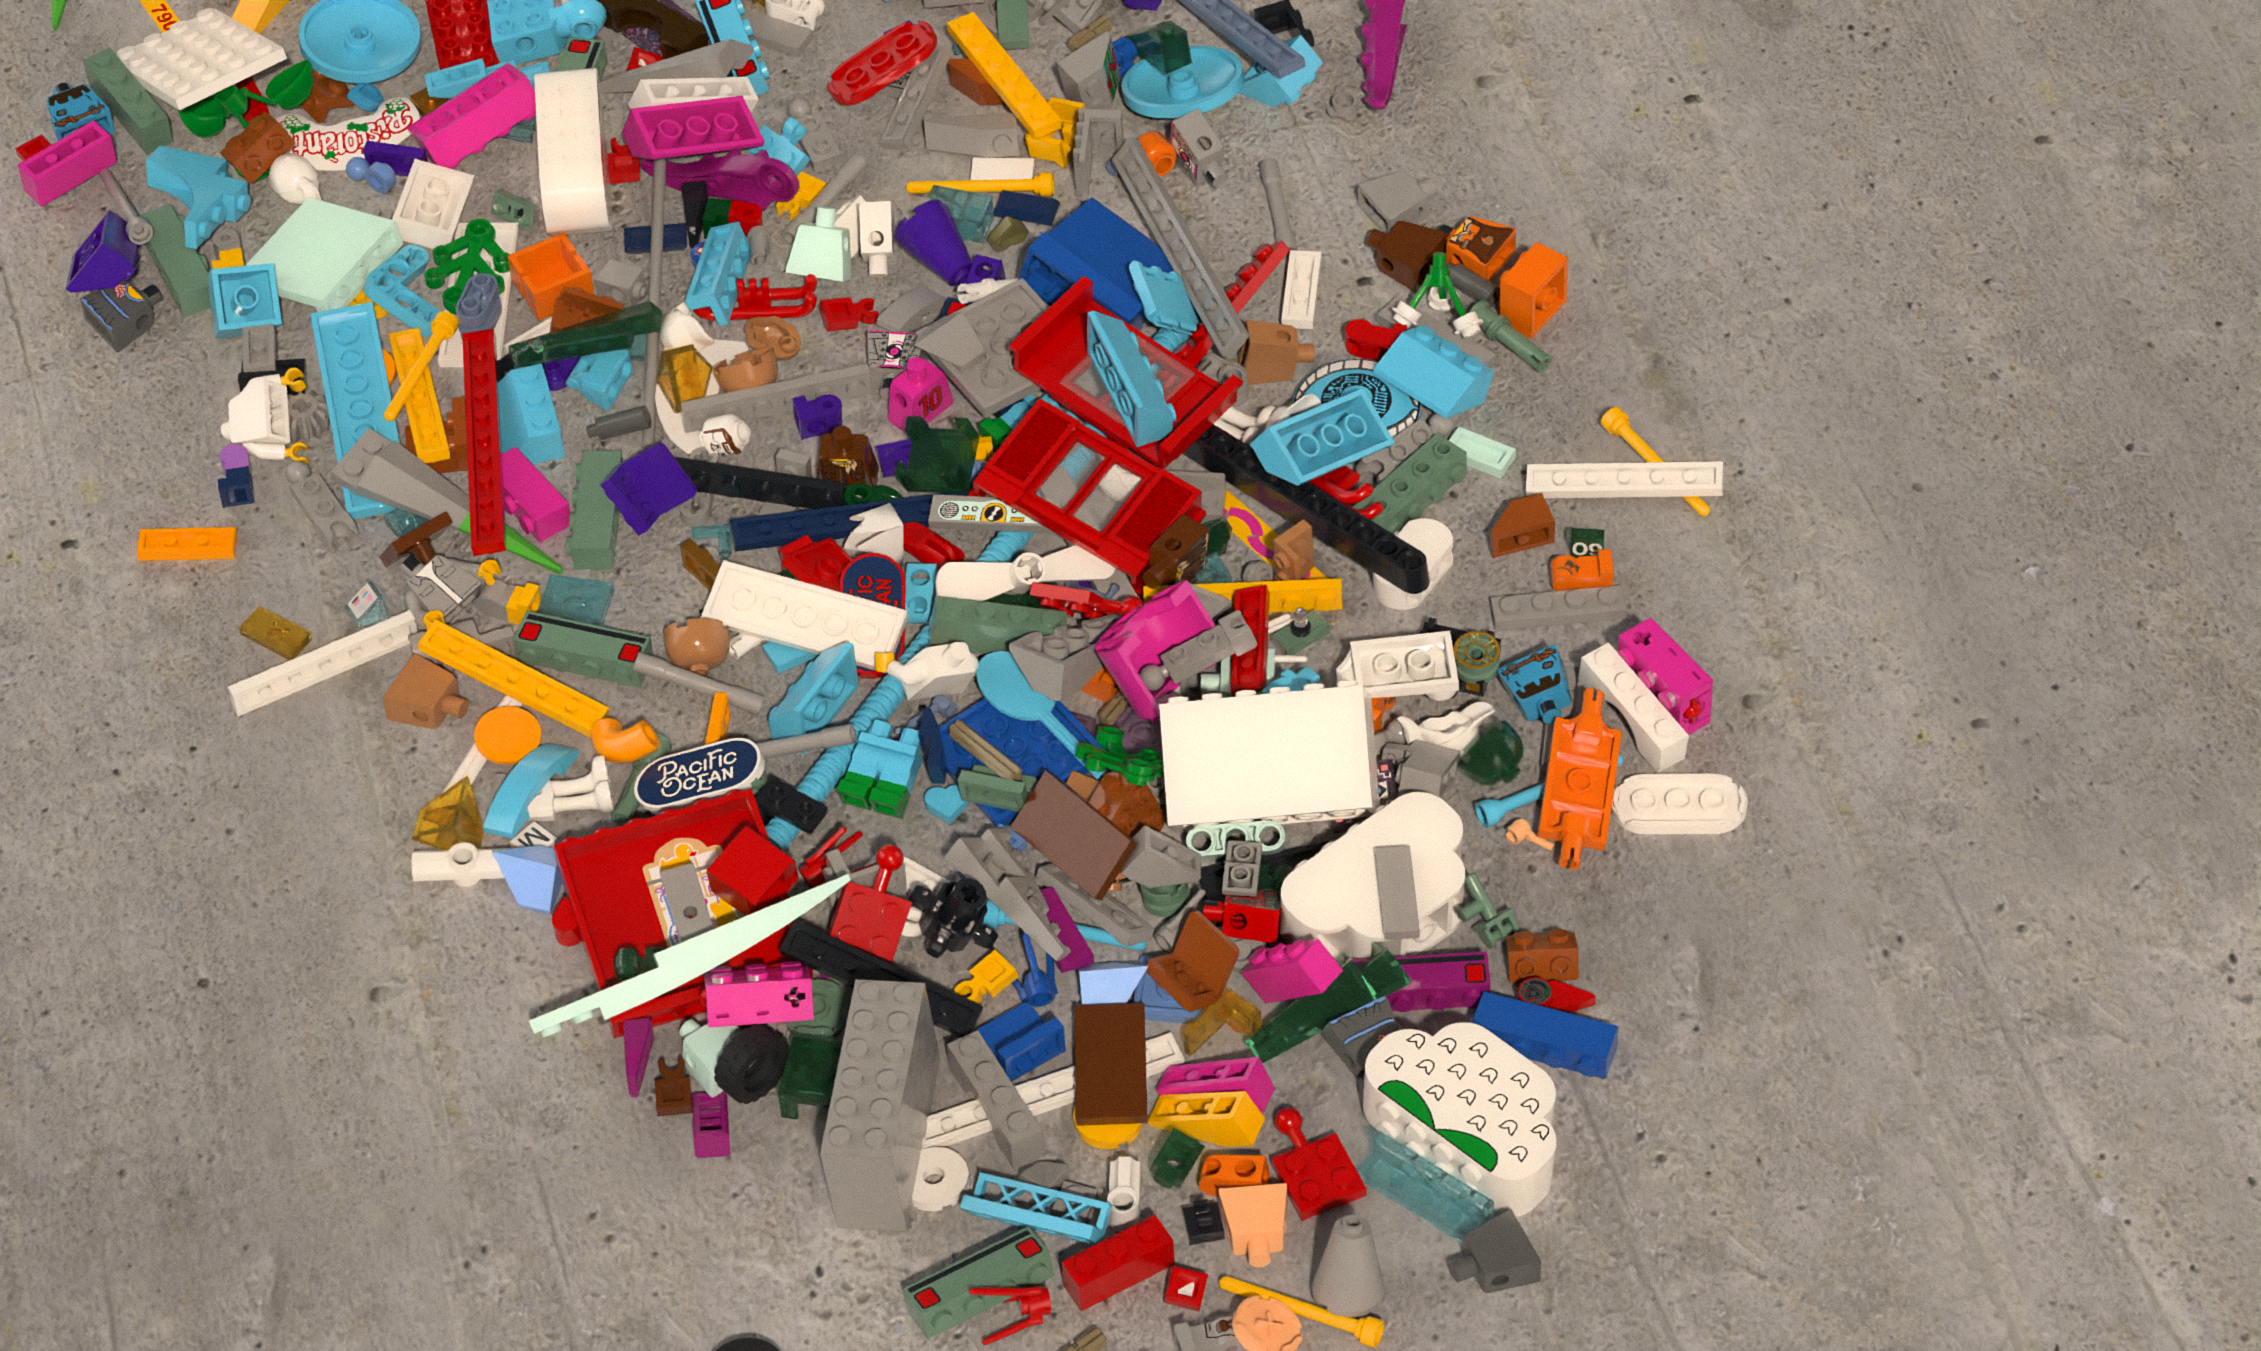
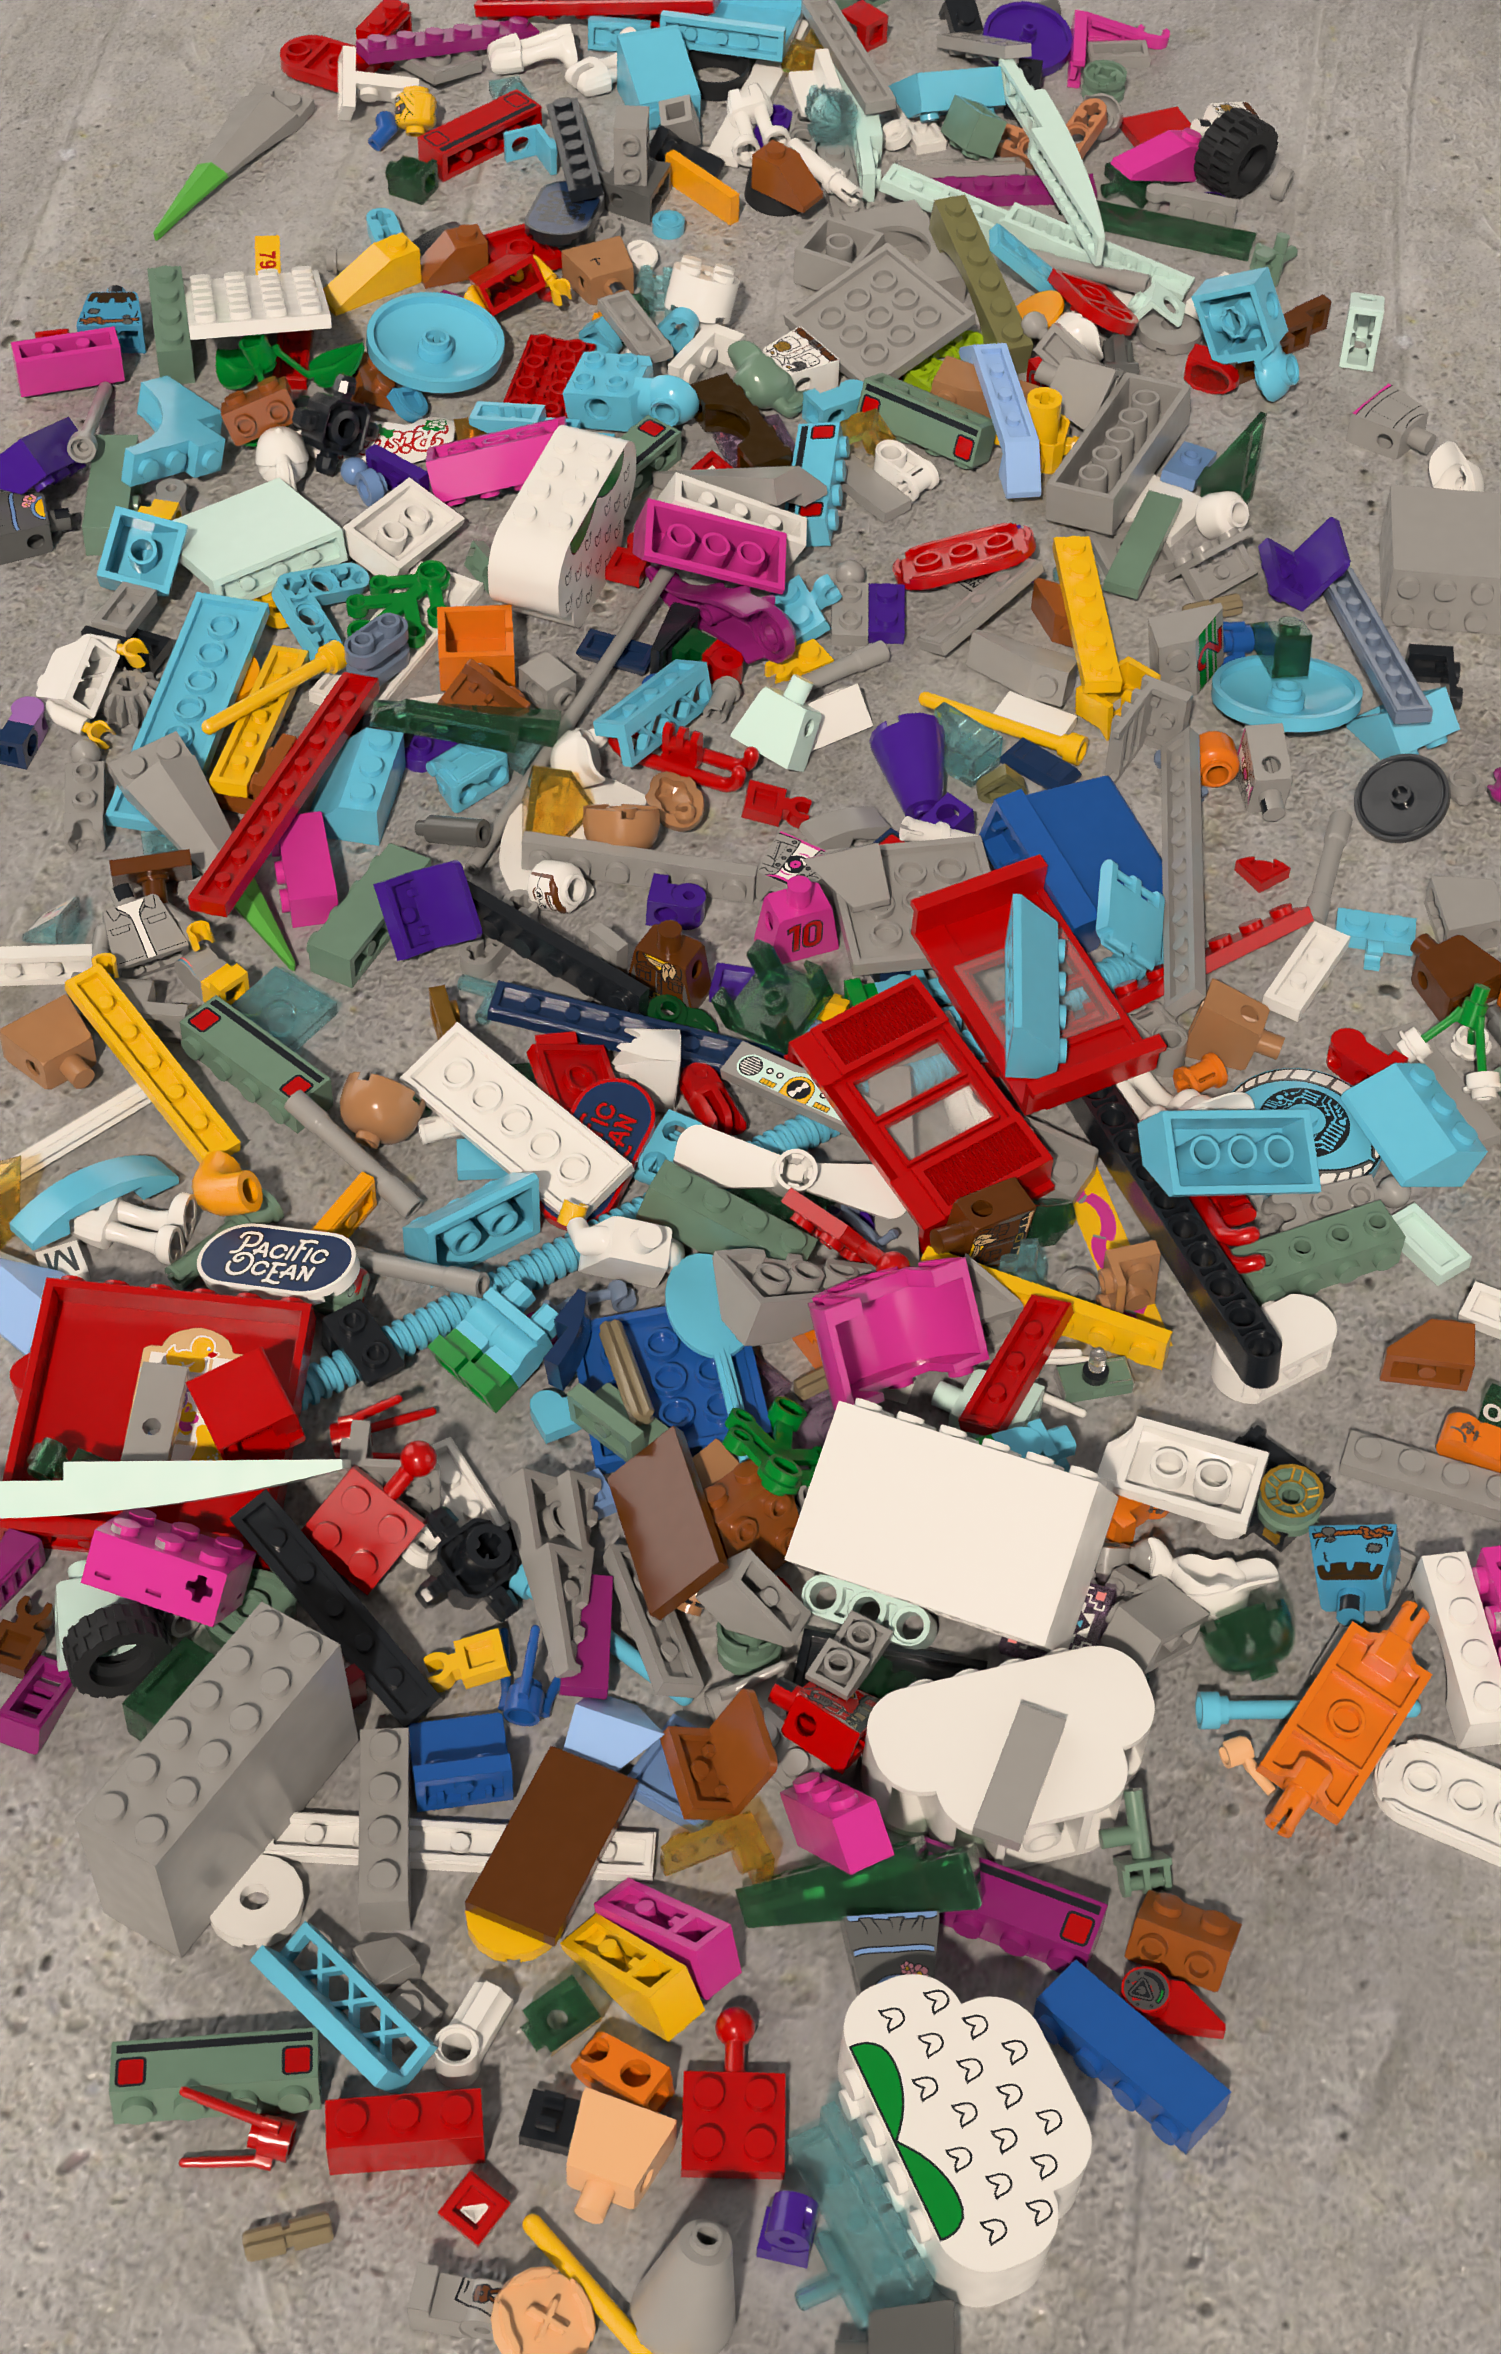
camera: 20 degrees right, 0 degrees up
(325, 136) = (334, 423): none -> black piece
(507, 734) = (109, 1127): light orange piece -> none
(845, 130) = (886, 613): none -> dark purple plate
(877, 225) = (849, 732): white torso -> none
(1201, 651) = (947, 1354): light grey plate -> none
(1231, 228) = (1262, 873): none -> red tile
(1266, 394) = (1201, 1075): none -> orange bush
(1307, 132) = (1402, 798): none -> black shield
(1337, 242) = (1376, 934): none -> medium azure plate
(1388, 1216) = (788, 2229): none -> dark purple leg
(1431, 1236) = (839, 2282): none -> clear light blue piece

